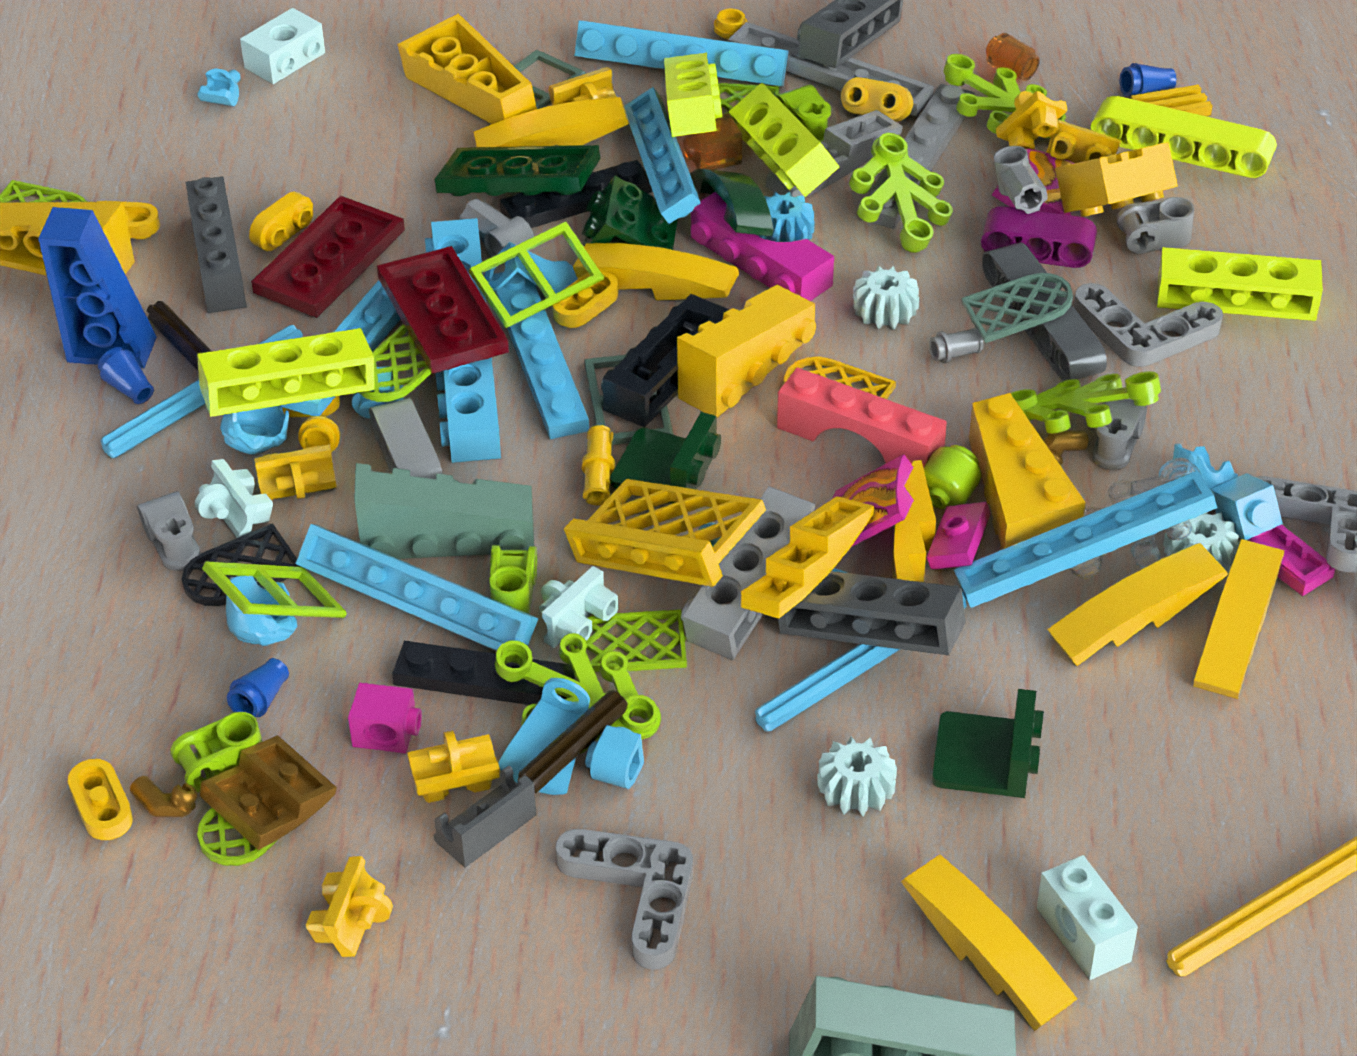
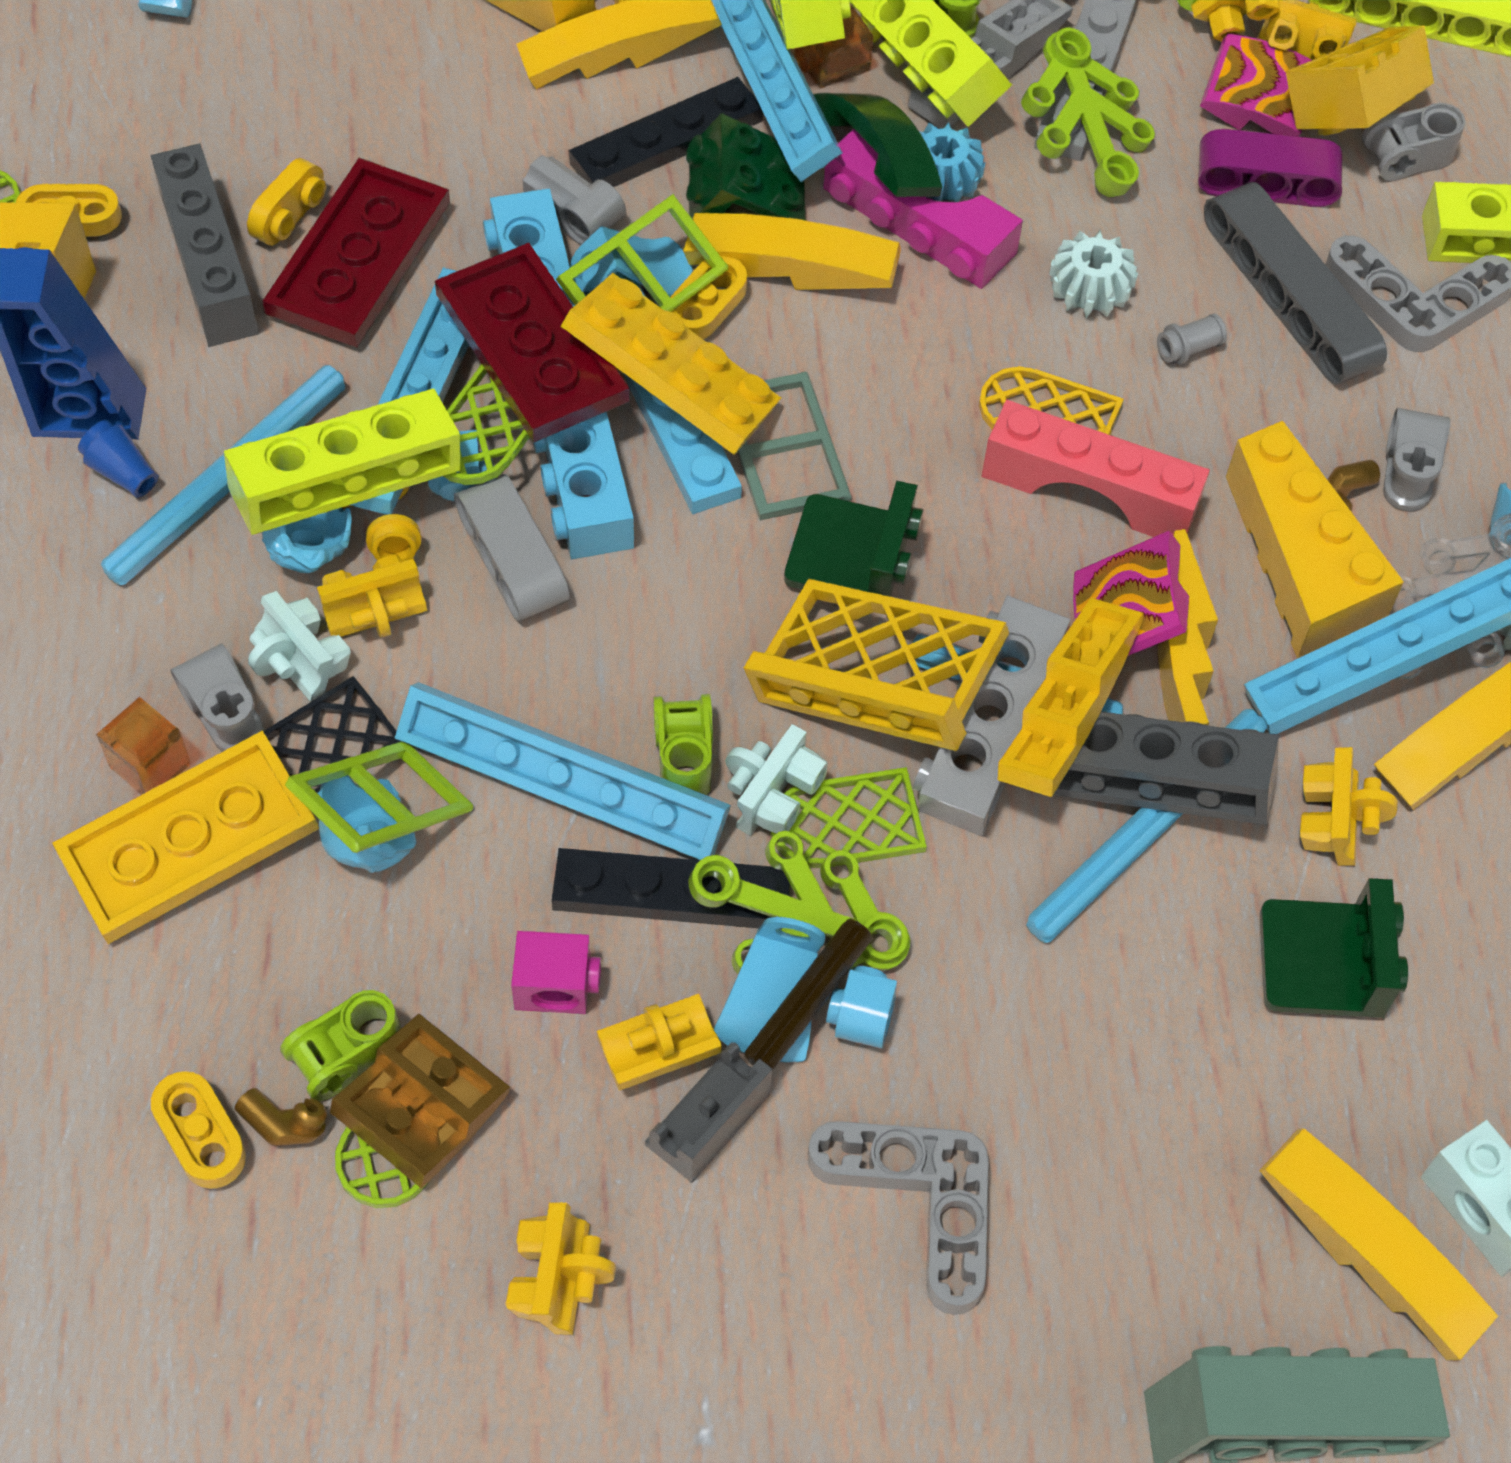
camera: 10 degrees left, 15 degrees up
(108, 555) = (143, 747): none -> clear orange panel
(127, 613) = (184, 837): none -> yellow plate
(177, 332) = (185, 393): dark brown axle -> none
(258, 688) = (378, 940): blue cone -> none
(440, 515) = (581, 656): sand green wedge -> none
(518, 170) = (588, 105): dark green plate -> none
(544, 328) = (672, 362): none -> yellow plate
(598, 465) = (765, 556): yellow pin -> none
(654, 364) = (789, 436): black brick -> none
(741, 349) = (924, 371): yellow wedge -> none
(857, 776) = (1166, 1027): light aqua gear -> none
(952, 476) = (1222, 542): lime head -> none
(958, 535) = (1243, 632): dark pink plate -> none
(1015, 285) = (1269, 247): sand green window -> none
(1019, 179) = (1241, 91): light grey piece -> none
(1020, 654) = (1339, 784): none -> yellow hips
(1071, 397) = (1364, 420): lime plant -> none

